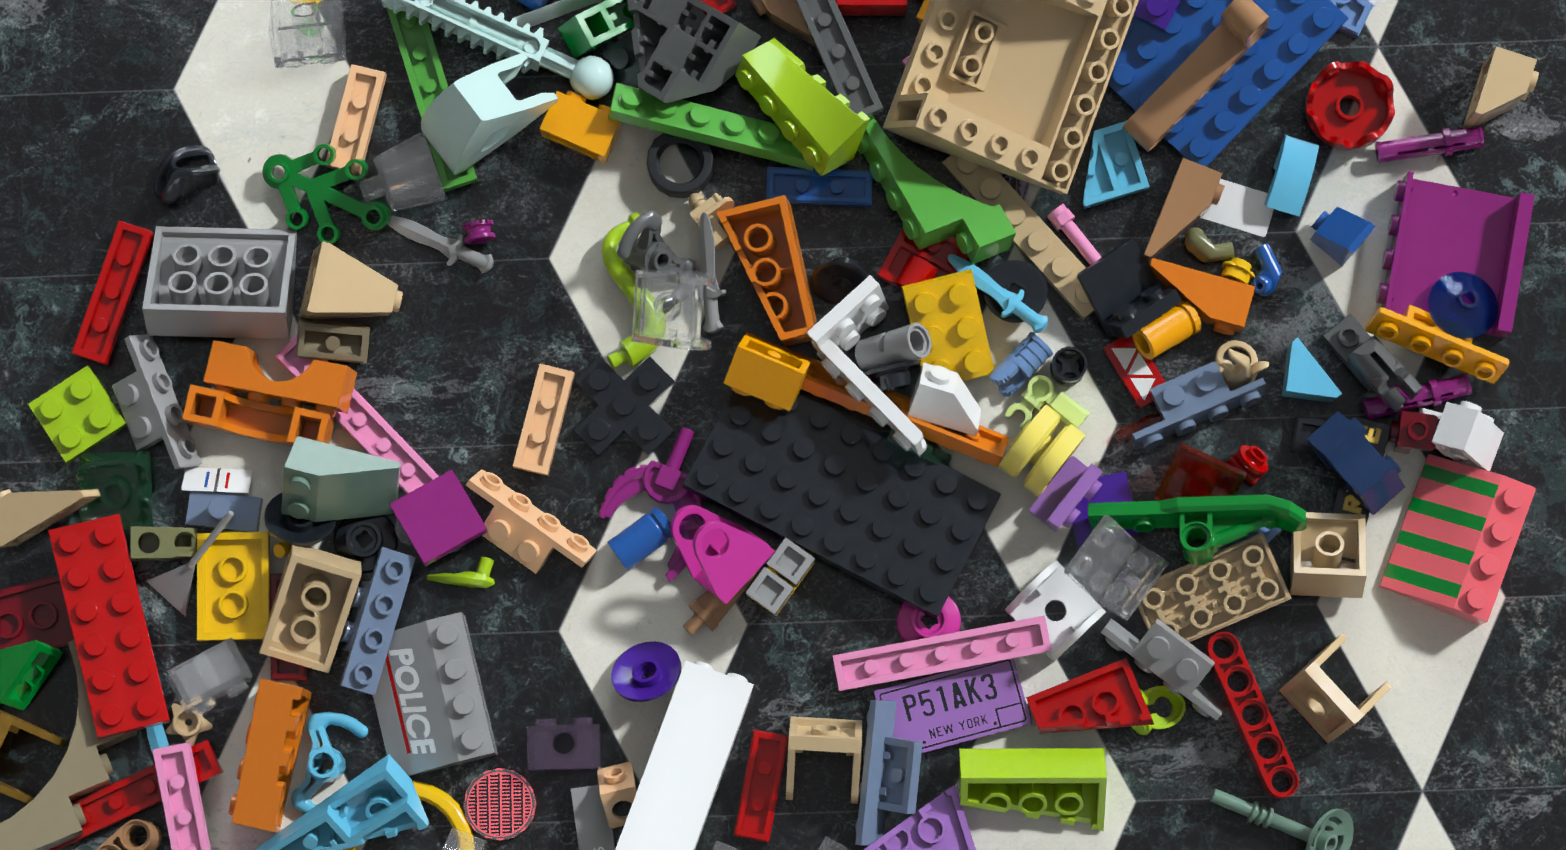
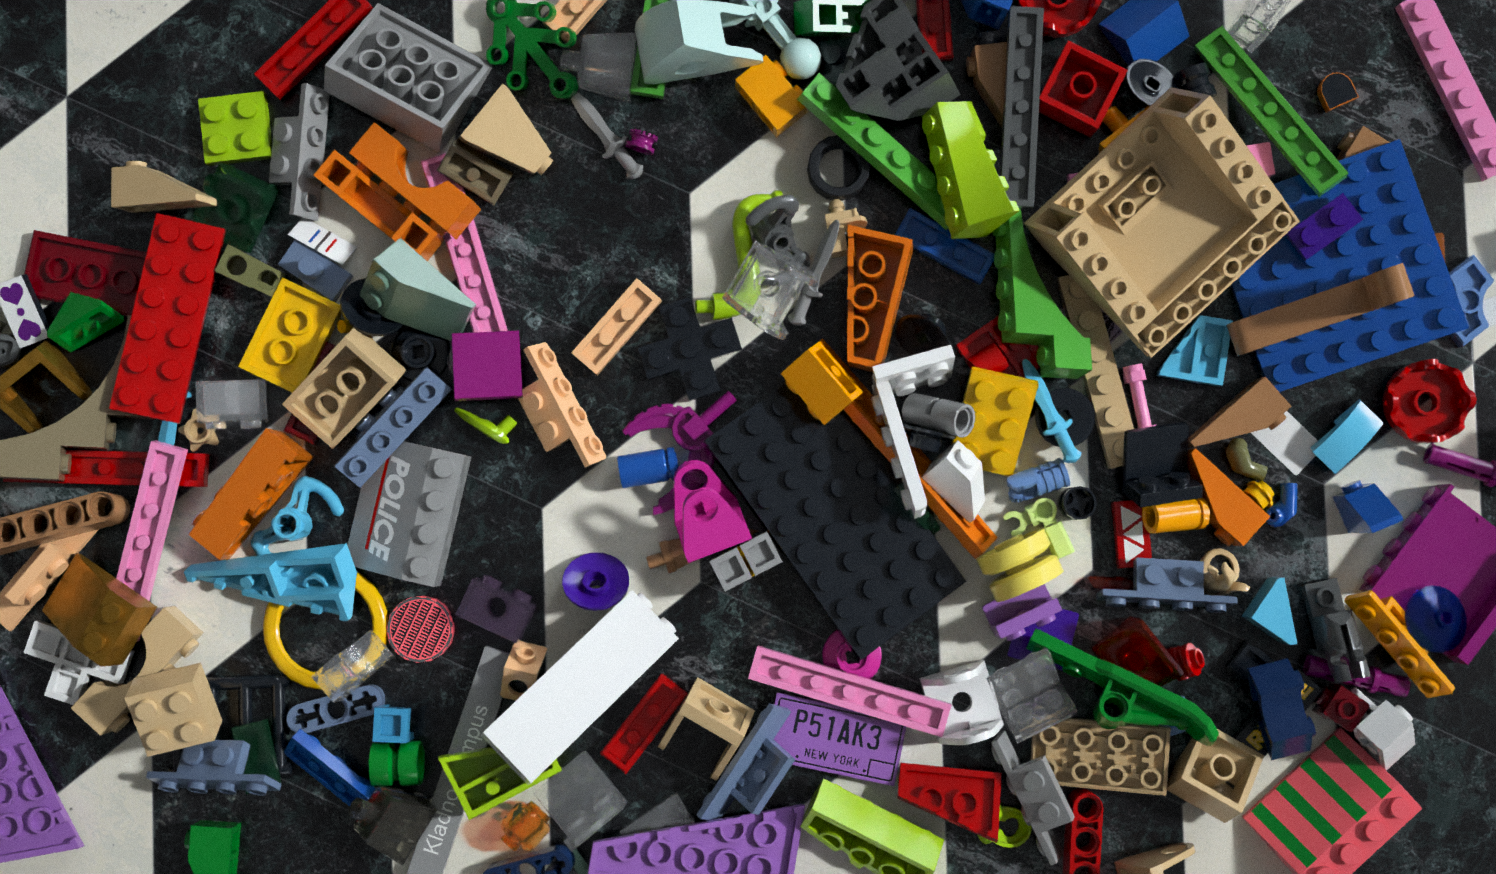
camera: 20 degrees right, 5 degrees up
(177, 583) = (248, 309): light grey piece -> none

